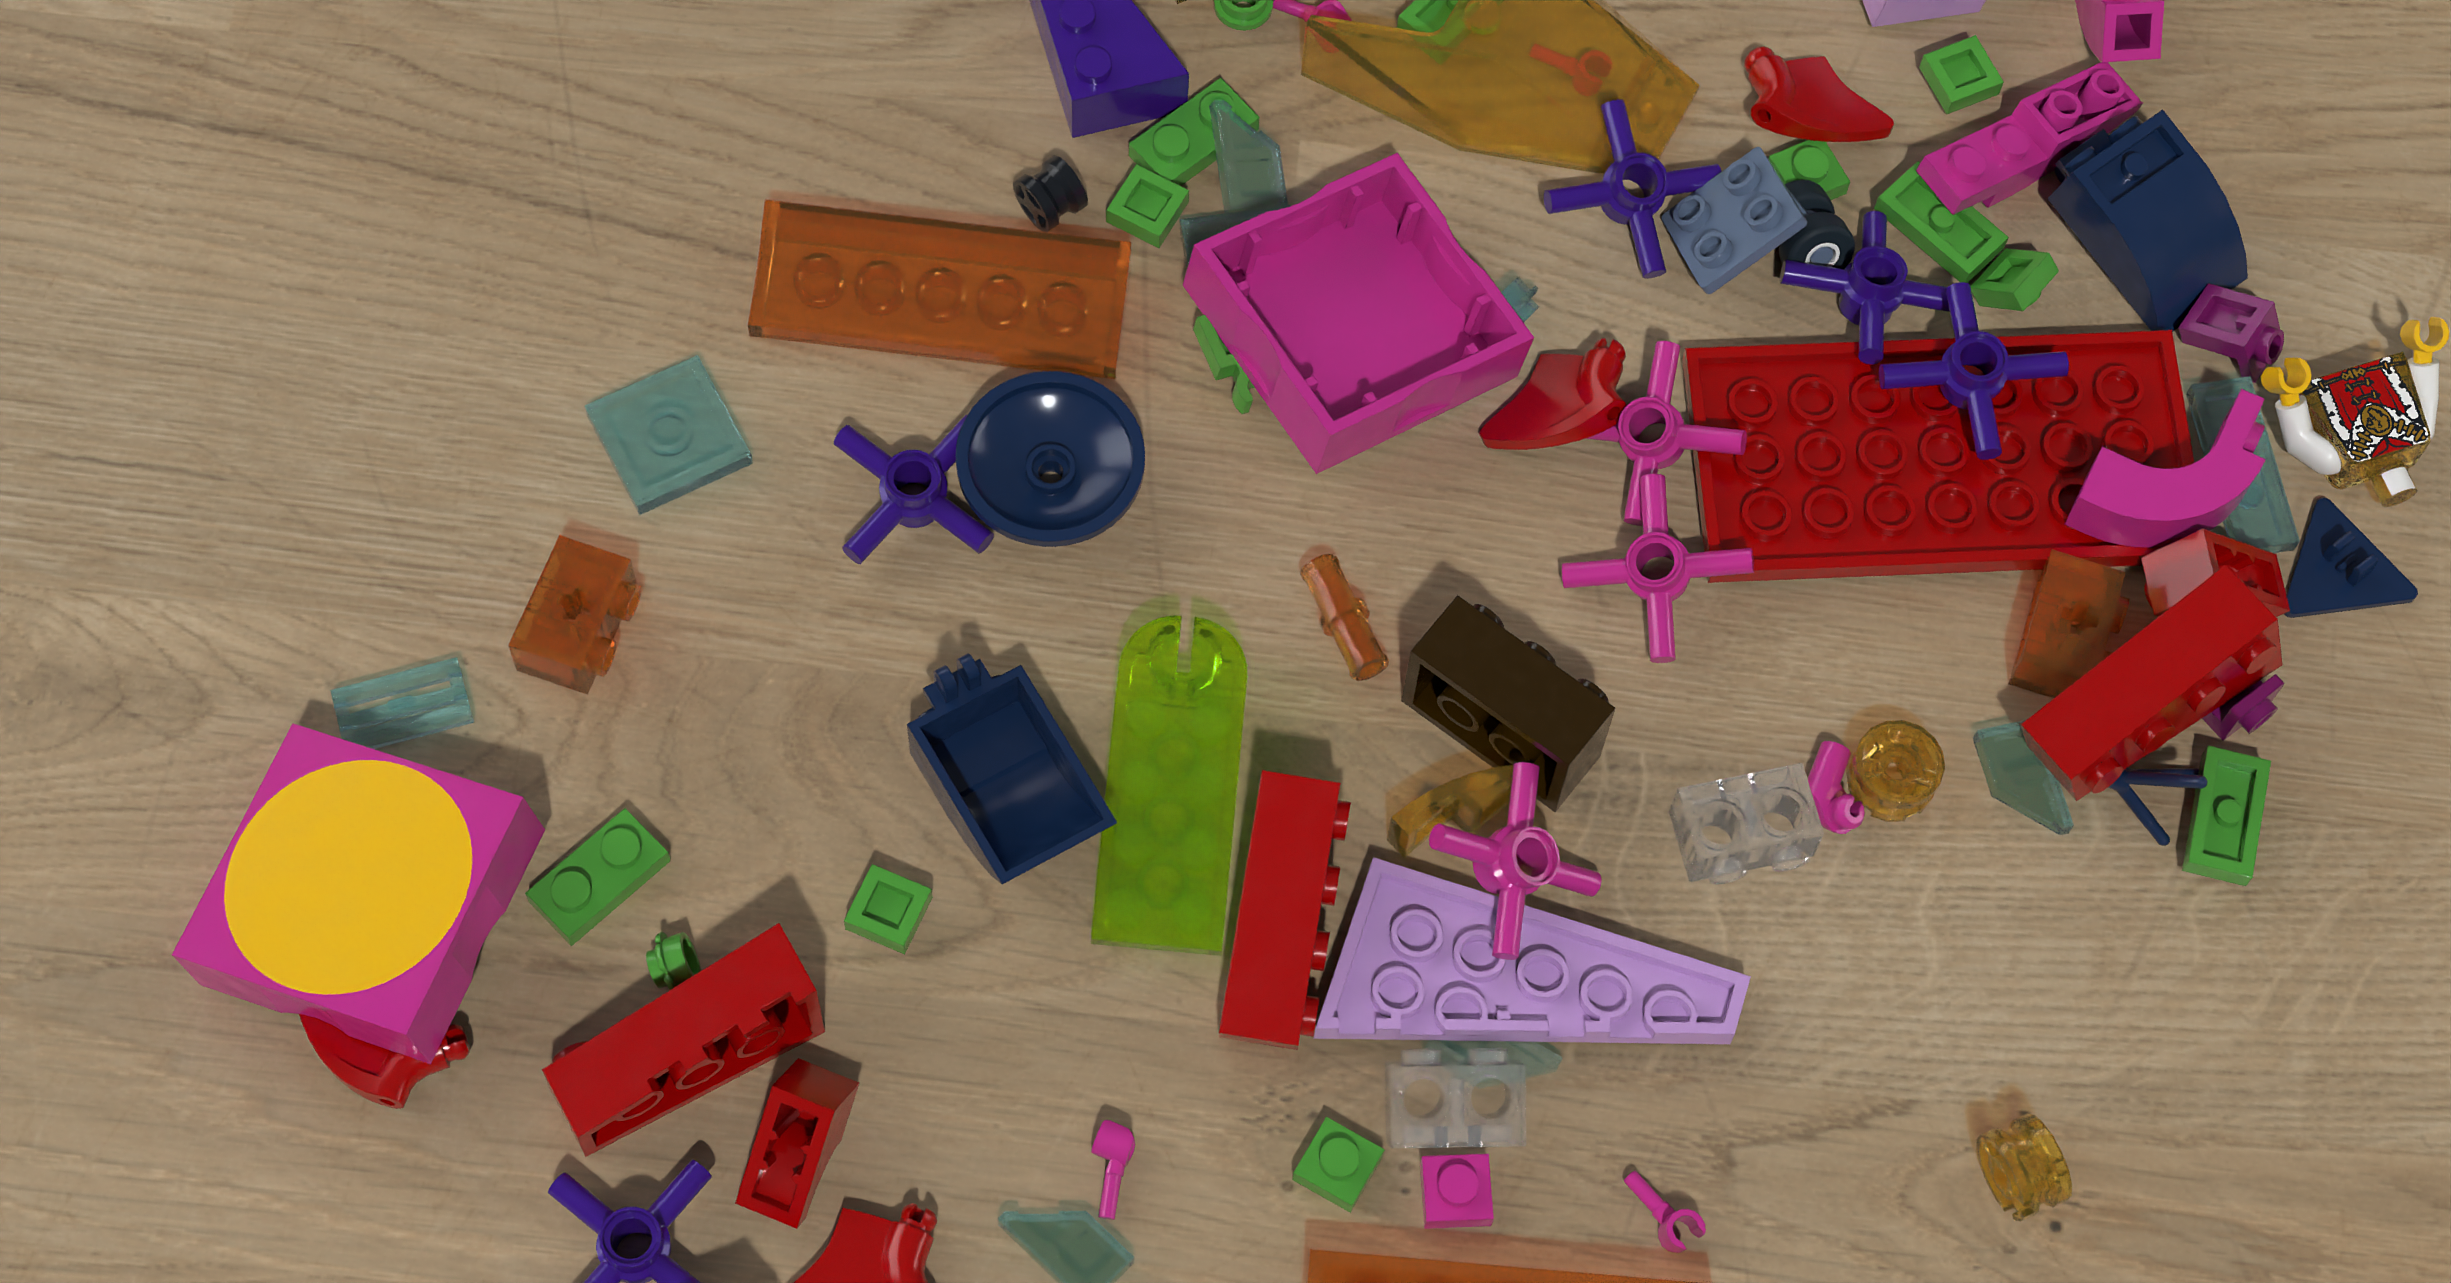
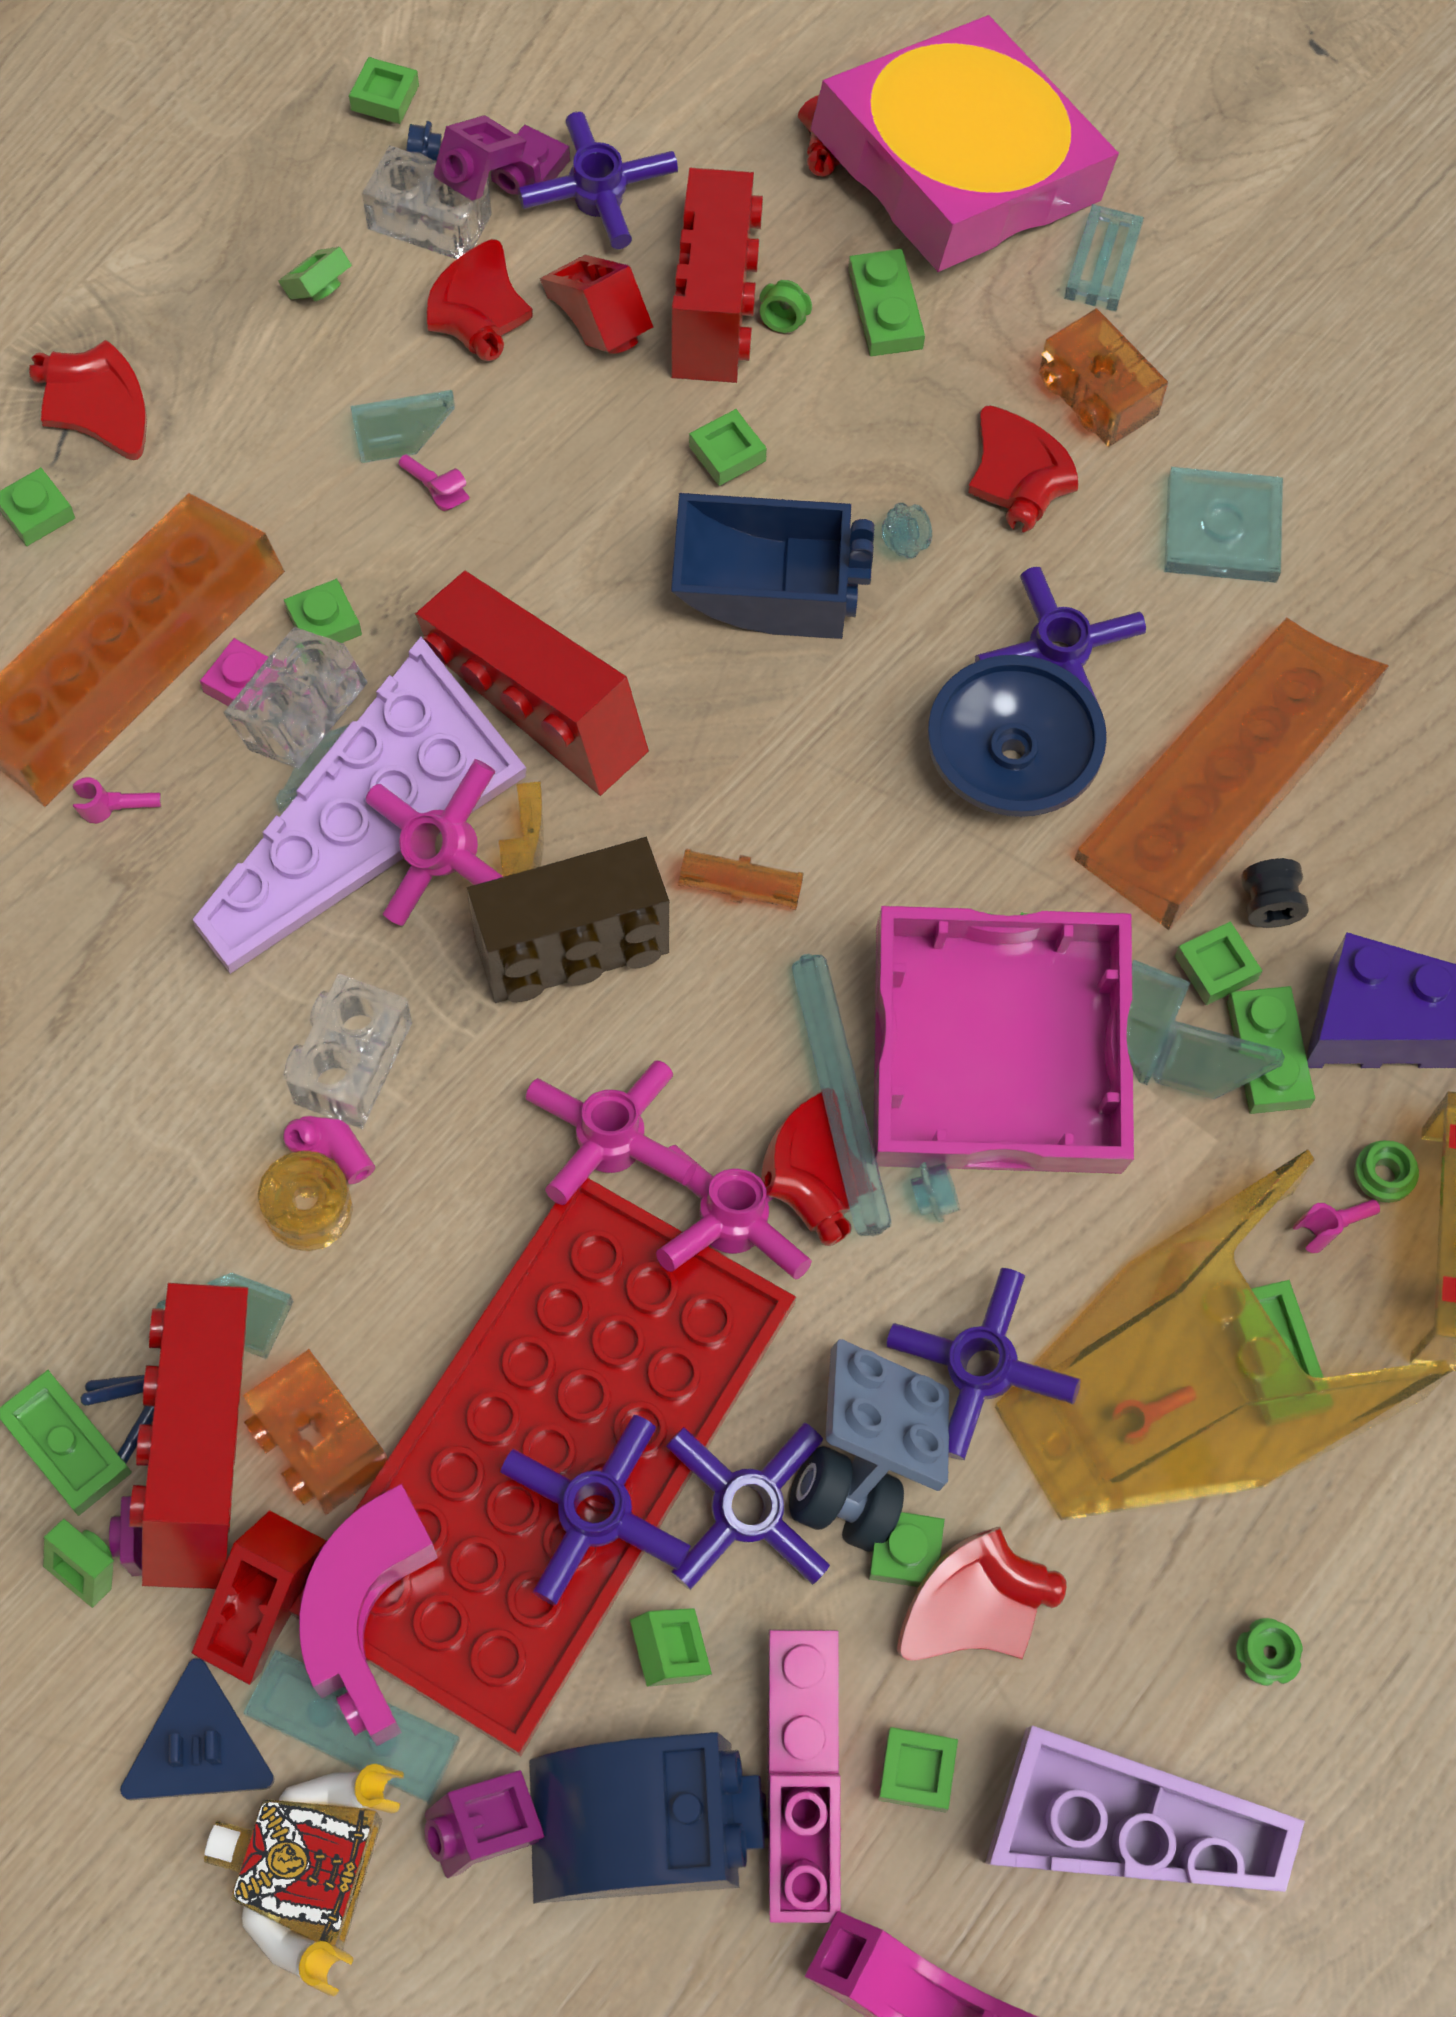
camera: 125 degrees right, 0 degrees up
(723, 639) = (1021, 467): none -> red arm
(875, 691) = (907, 530): none -> clear light blue plate
(1171, 791) = (696, 673): clear neon green plate -> none
(1483, 420) = (841, 1096): none -> clear light blue axle
(1956, 242) = (740, 1625): bright green plate -> none
(2298, 730) = (79, 1561): none -> bright green plate

